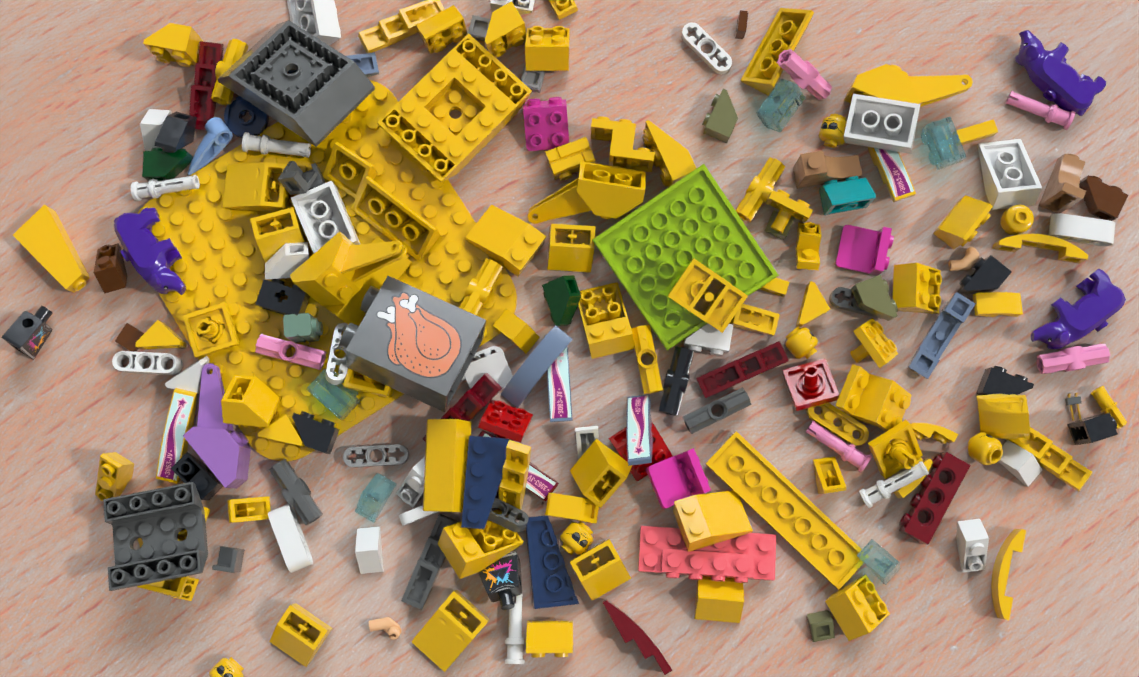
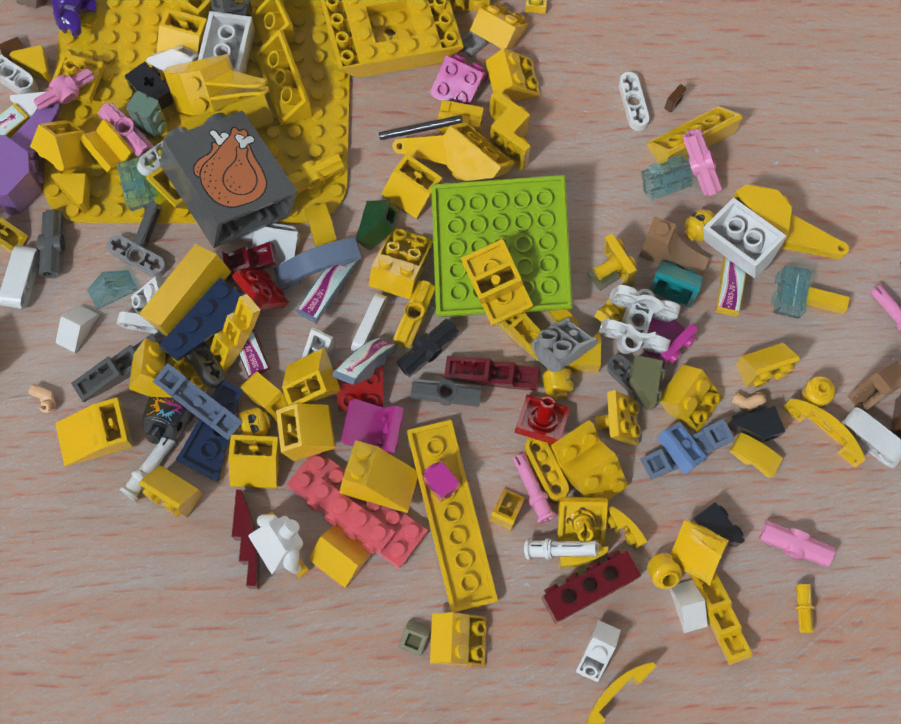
camera: 25 degrees right, 10 degrees down
(212, 350) = (63, 89): none -> bright pink axle
(285, 377) = (107, 146): none -> yellow panel
(316, 434) = (99, 206): black slope -> none
(368, 423) = (147, 224): none -> dark grey tile
(506, 239) = (363, 151): yellow slope -> none
(524, 552) = (197, 401): none -> sand blue slope
(540, 191) = (421, 127): none -> black bar
(589, 90) = (512, 75): none -> yellow slope
(614, 391) = (369, 321): none -> white beam
(625, 517) = (305, 430): none -> yellow slope
(667, 624) = (279, 544): none -> white torso
(669, 155) = (543, 155): yellow slope -> none
(710, 339) = (480, 331): white slope -> none
(722, 119) = (608, 162): olive slope -> none
(760, 189) = (594, 239): yellow piece -> none
(764, 490) = (440, 481): none -> dark pink brick
(789, 312) = (561, 345): none -> light grey slope
(839, 240) = (631, 301): none -> white piece
(879, 561) = (504, 611): clear light blue slope -> none
(936, 336) = (682, 447): none -> medium blue slope
(1008, 174) = (834, 351): white slope -> none
(1072, 401) = (774, 583): piece -> none
(1089, 313) = (830, 511): dark purple animal -> none
(1093, 429) = (776, 613): black brick -> none

